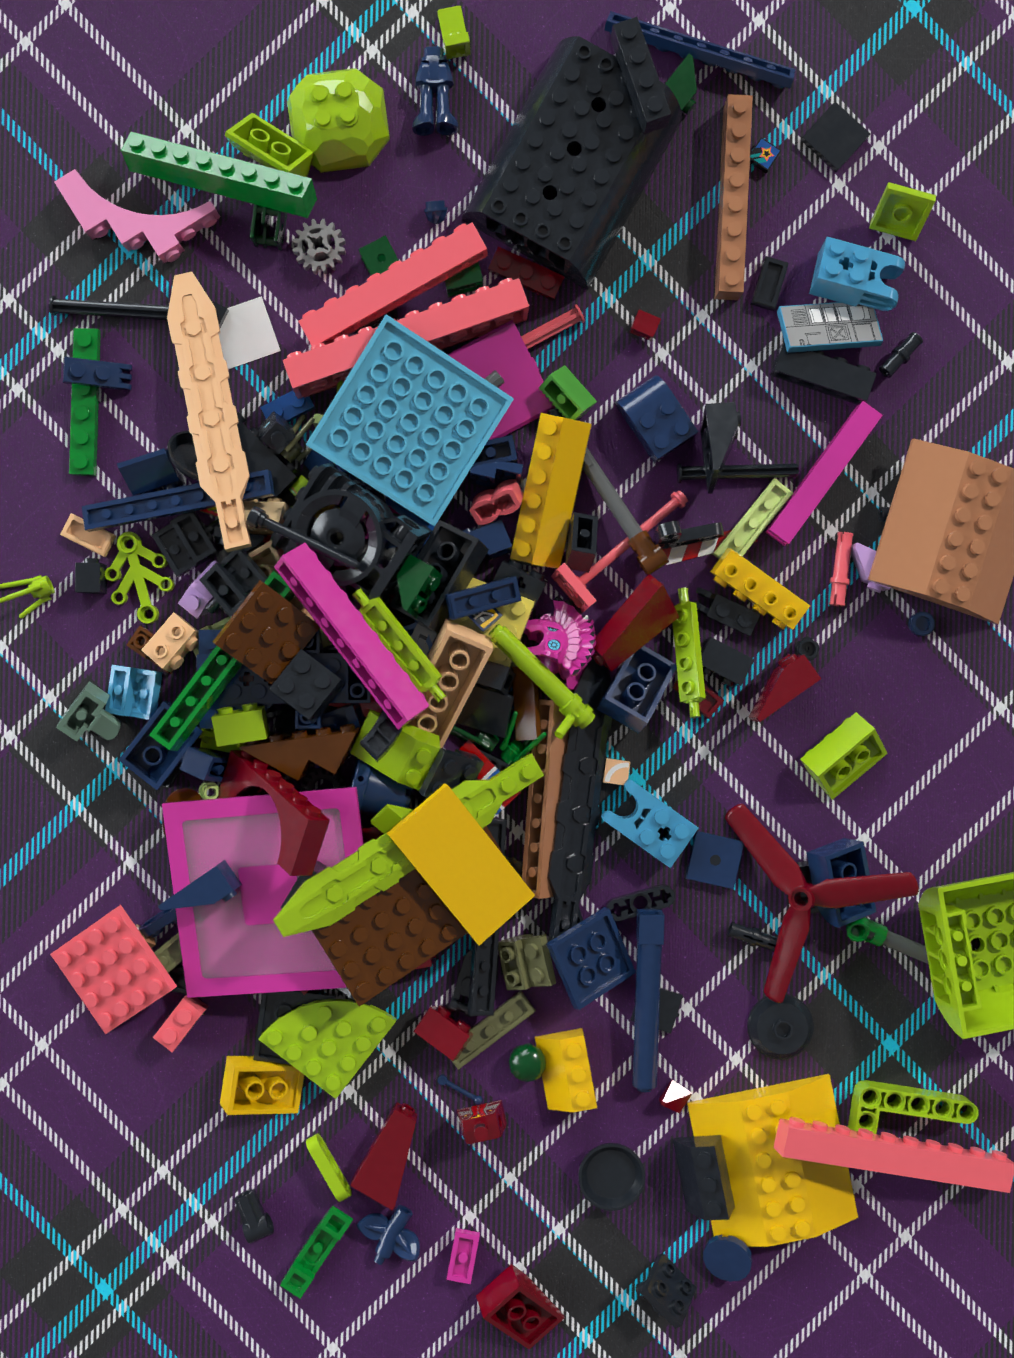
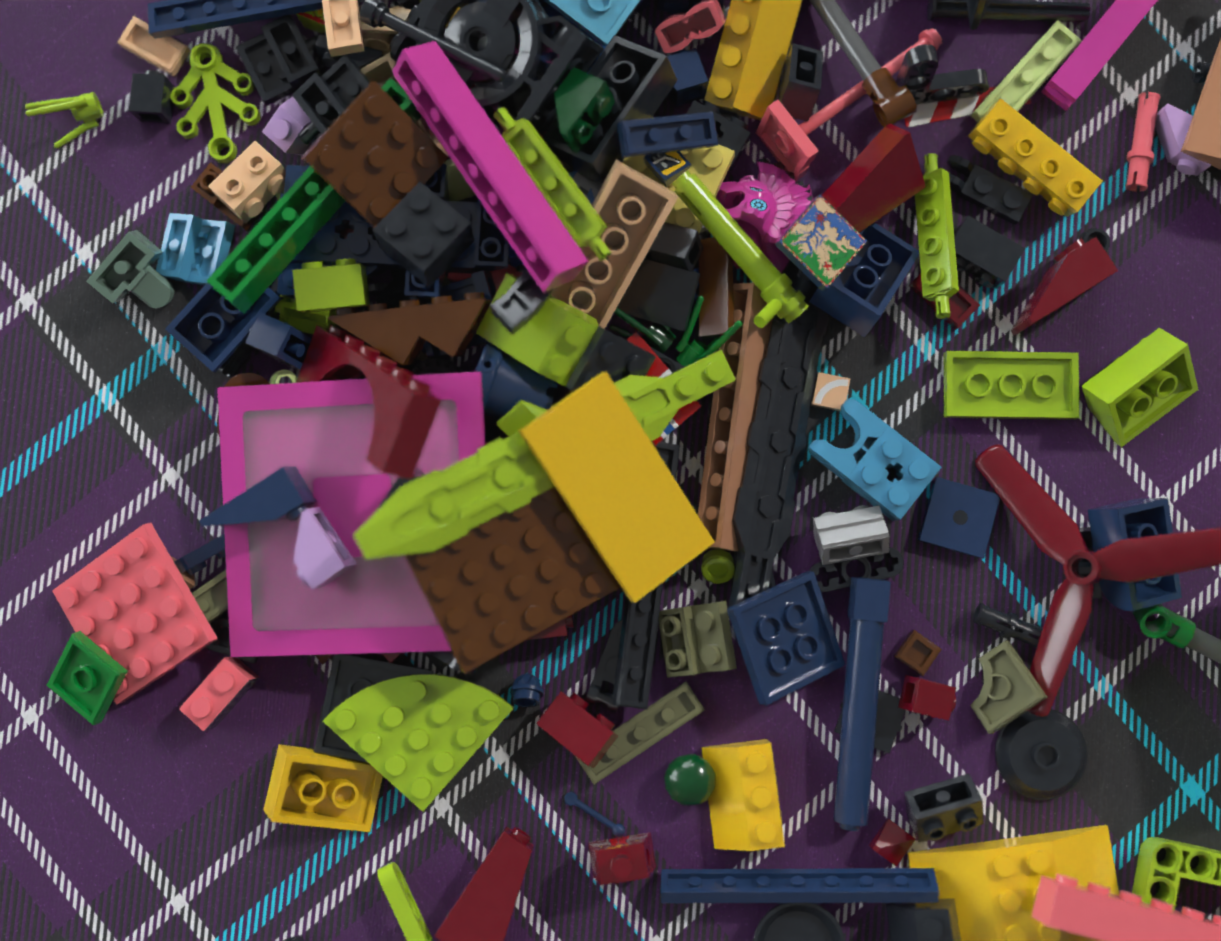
camera: 10 degrees right, 5 degrees down
(82, 1017) = (87, 678): none -> green tile
(247, 922) = (319, 550): none -> lavender slope
(405, 1005) = (527, 691): none -> dark blue plate
(539, 908) = (718, 566): none -> lime tile
(601, 672) = (821, 242): none -> tile
(608, 1133) = (799, 885): none -> dark blue plate
(635, 878) = (850, 534): none -> light grey brick
(688, 959) = (917, 652): none -> reddish brown tile
(696, 993) = (927, 697): none -> dark red brick
(711, 1072) = (944, 808): none -> black brick
(749, 760) = (1011, 385): none -> lime plate
(753, 983) = (1007, 688): none -> olive tile

